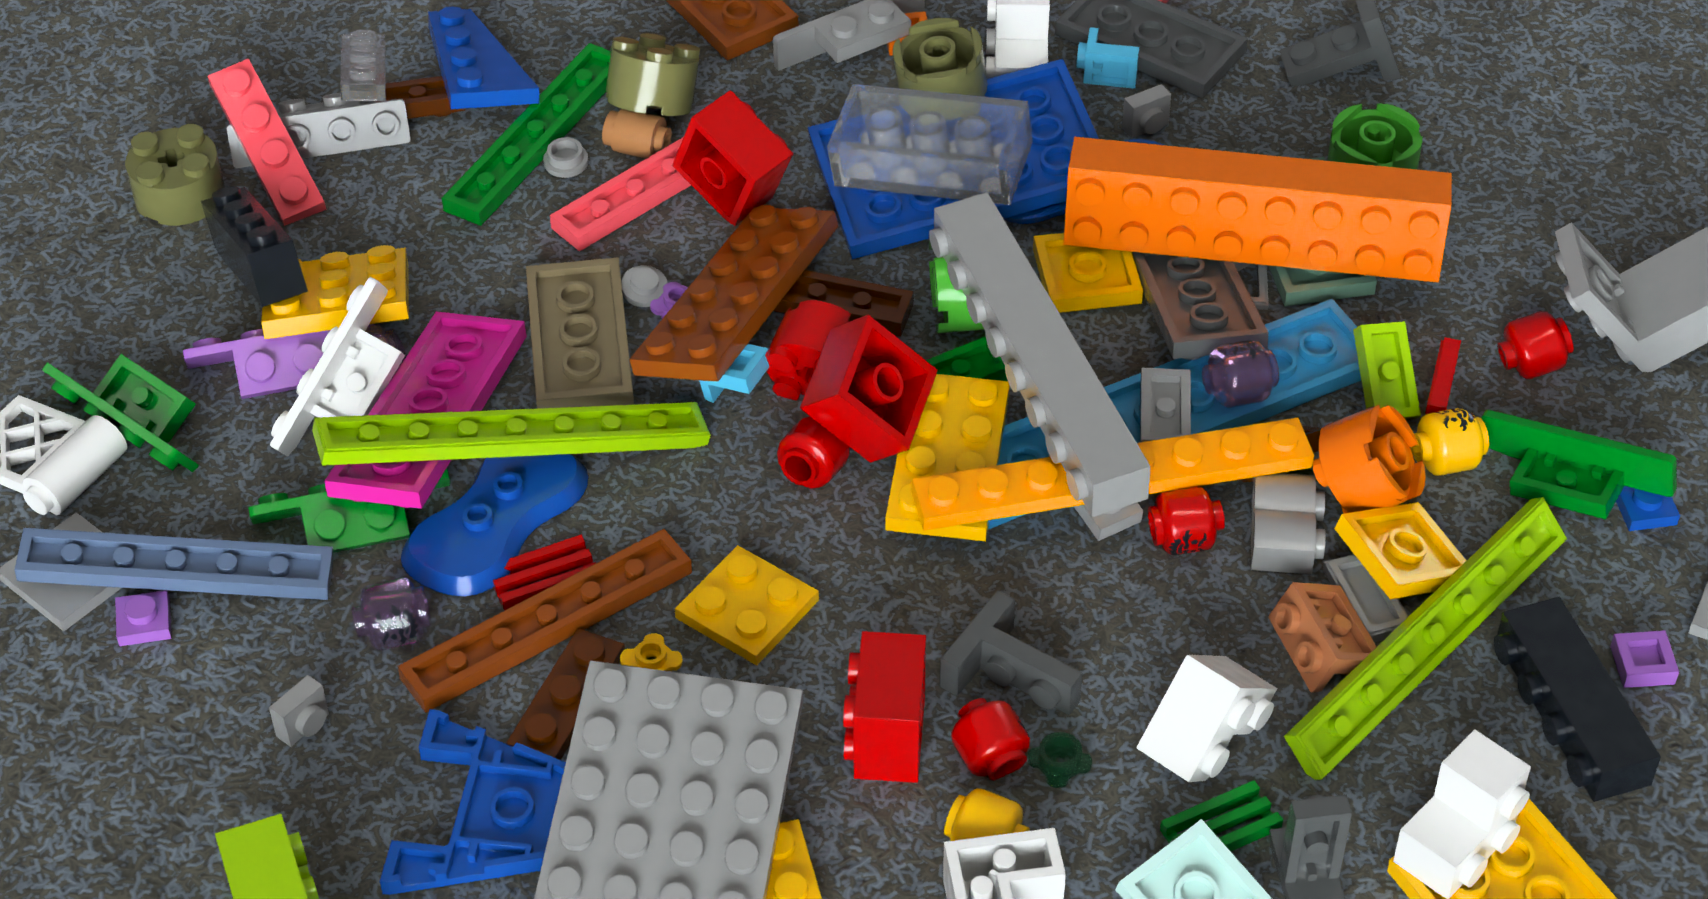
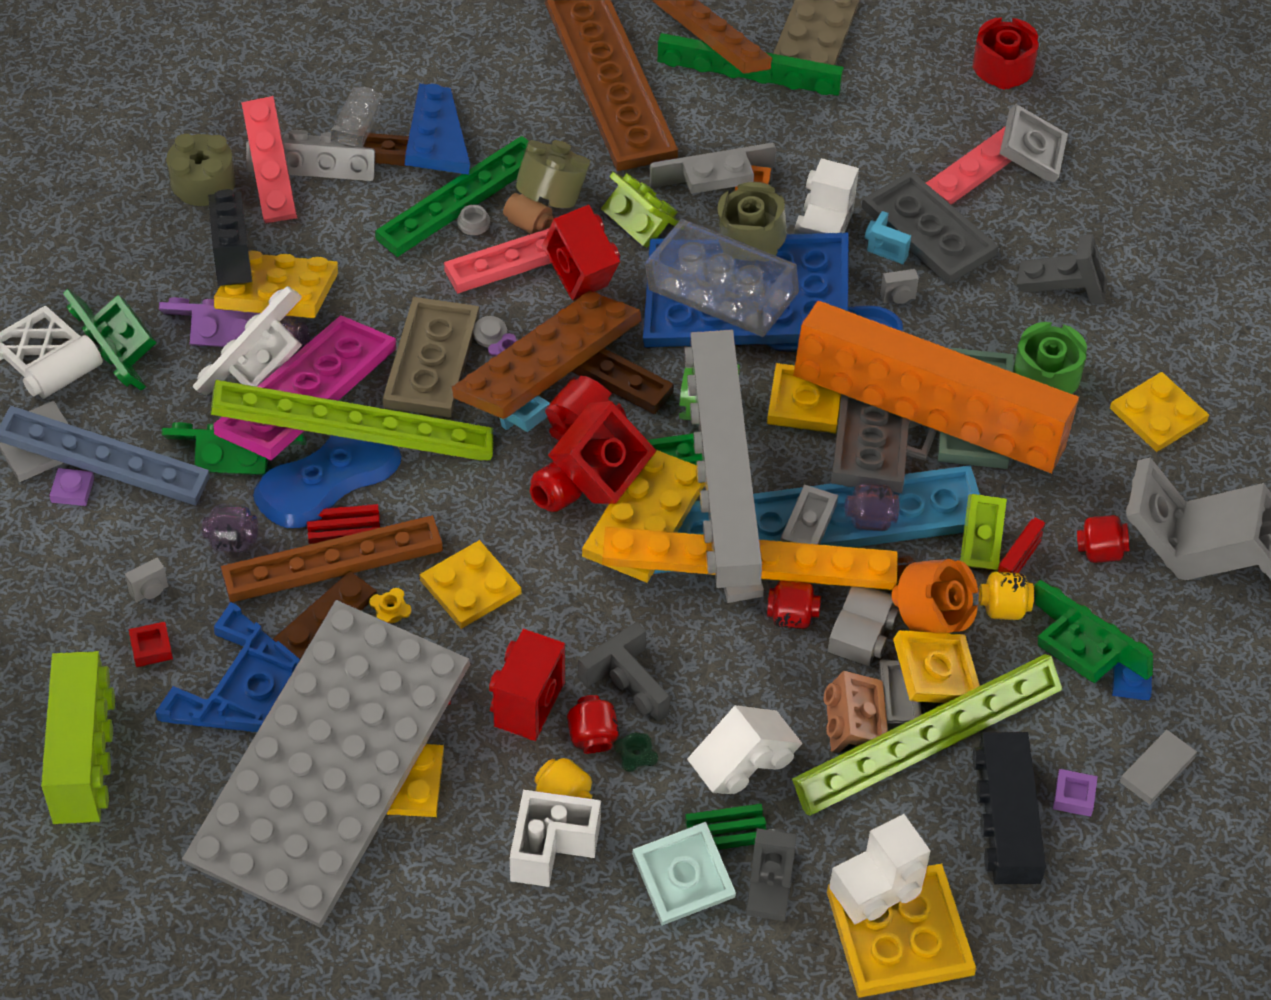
camera: 15 degrees right, 5 degrees up
(336, 794) = (150, 644): none -> red plate
(779, 96) = (638, 209): none -> lime bracket
(1527, 183) = (1159, 411): none -> yellow plate

